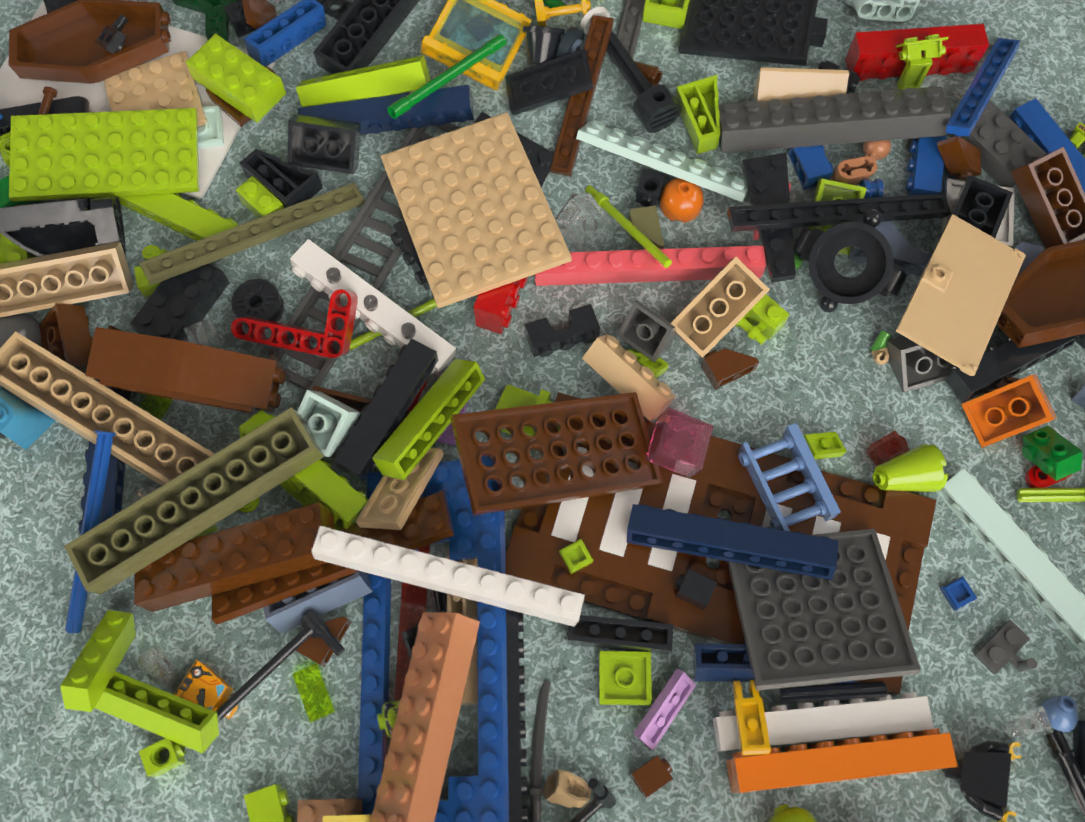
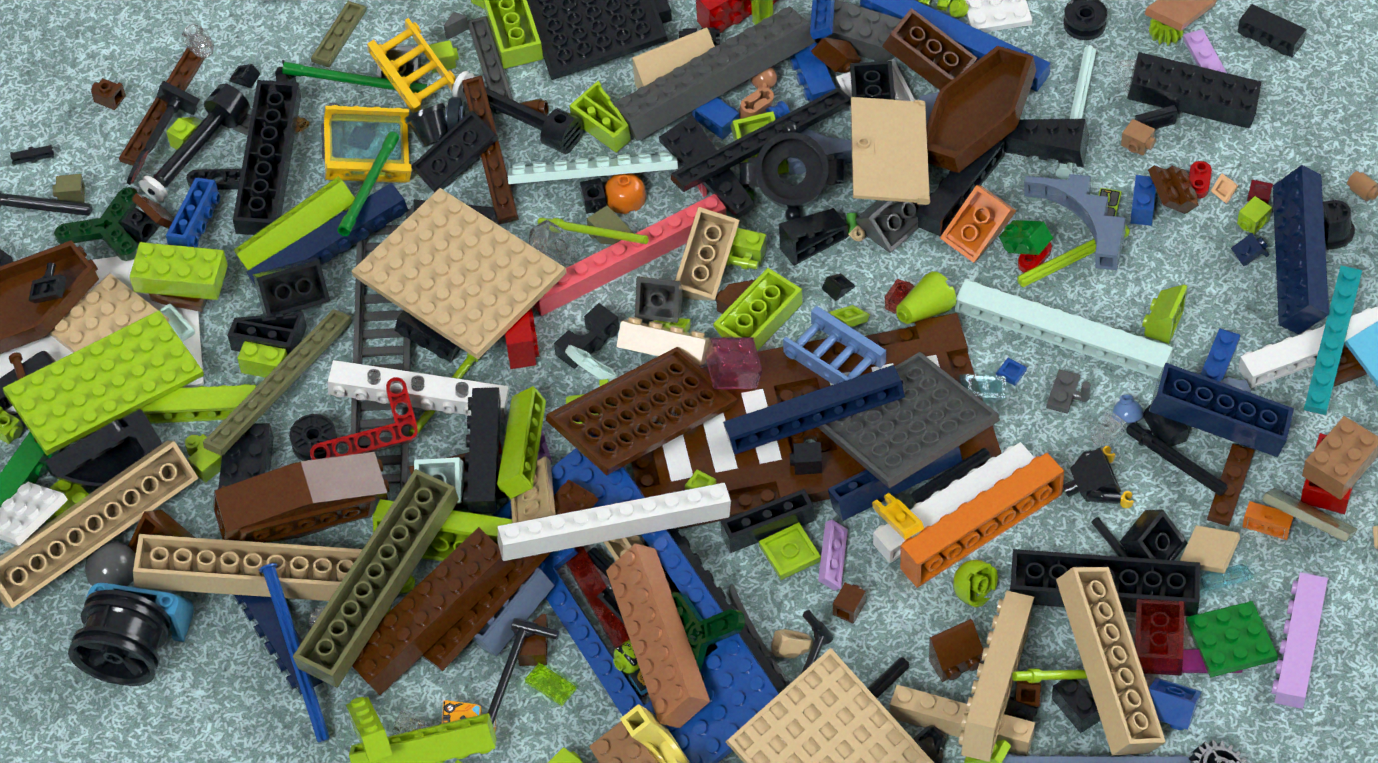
camera: 25 degrees left, 15 degrees down
(479, 769) = (715, 627): none -> dark green piece
(544, 368) = (590, 364): none -> light aqua tile
(738, 393) = (760, 309): none -> lime slope
(831, 402) = (837, 286): none -> black slope
(835, 335) = (811, 234): none -> black wedge
(921, 597) = (984, 385): none -> clear light blue slope

